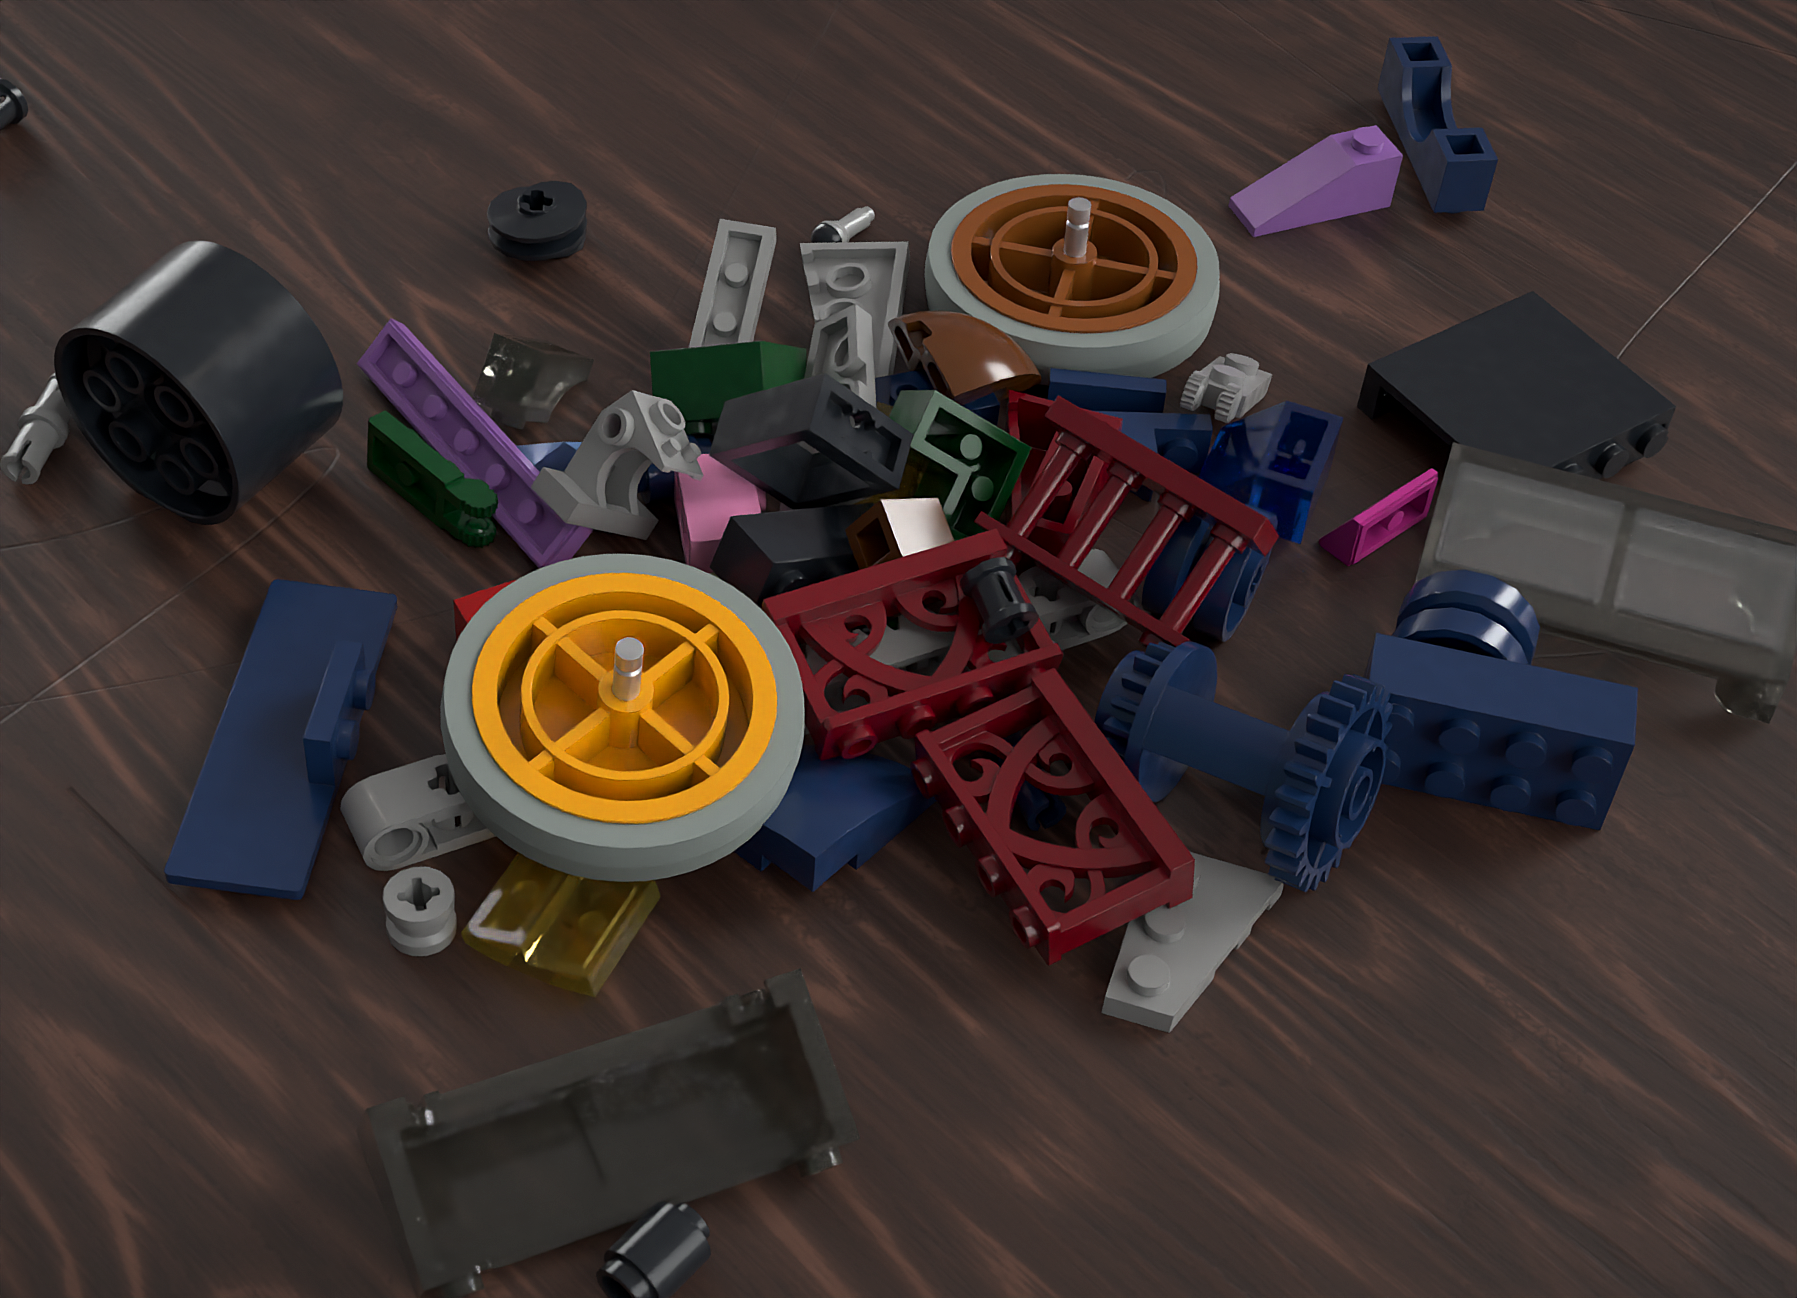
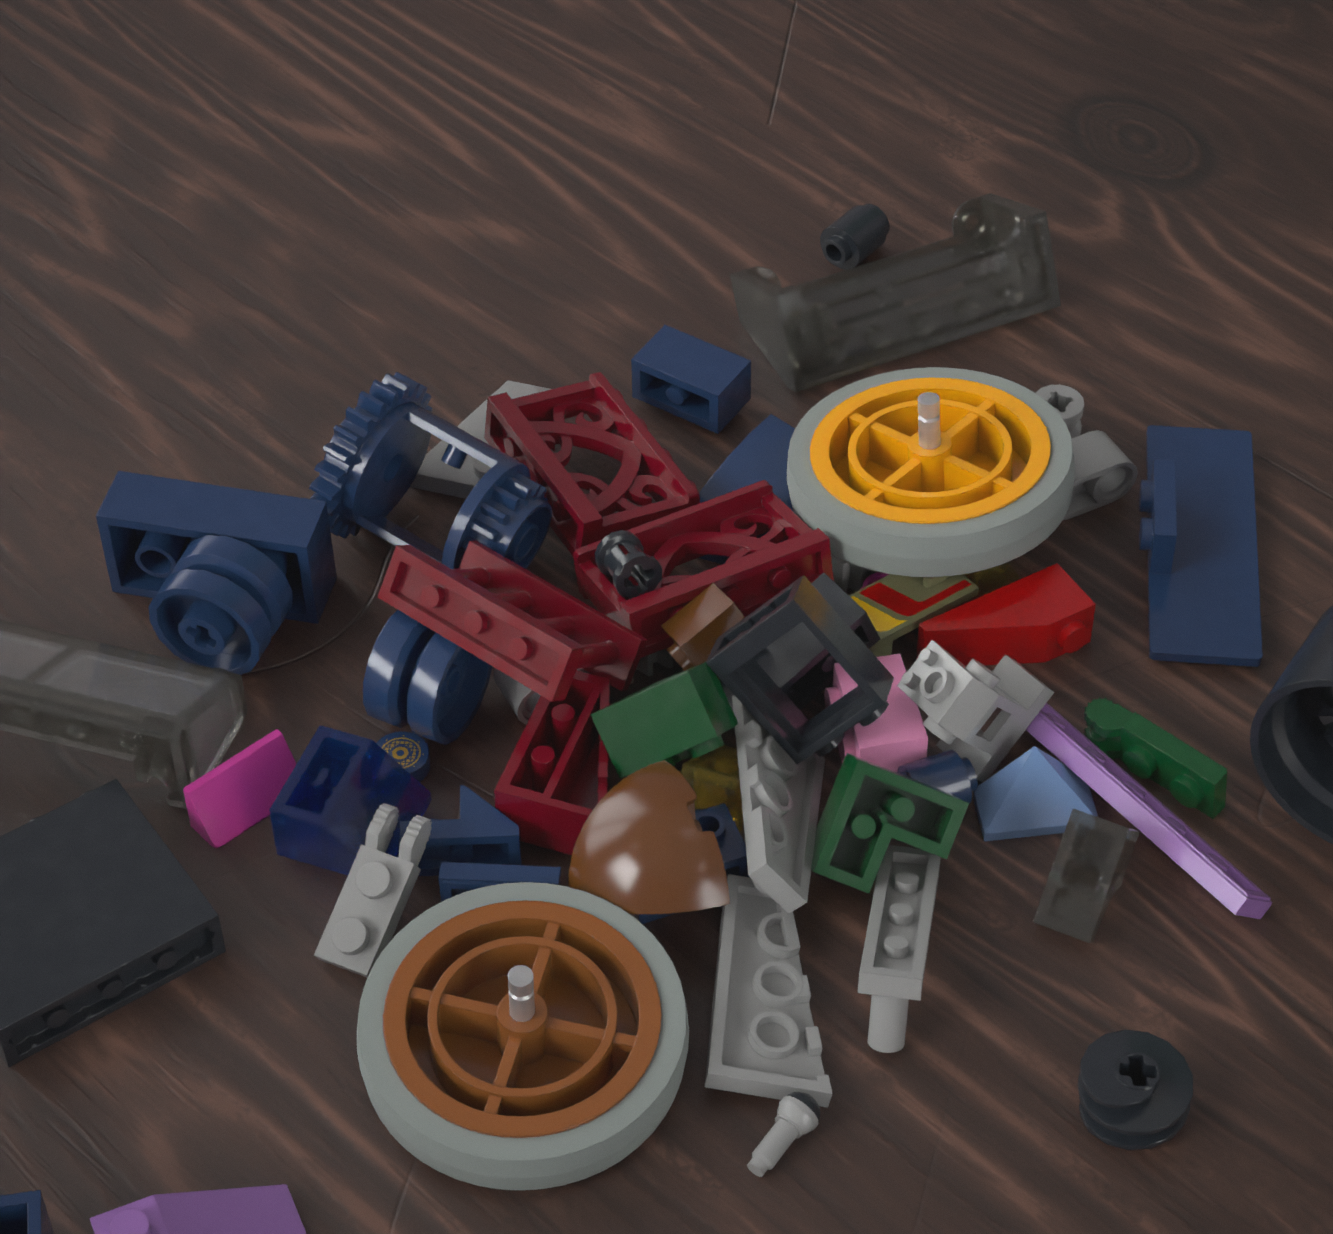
camera: 175 degrees left, 0 degrees up
(918, 972) = (691, 379): none -> dark blue brick

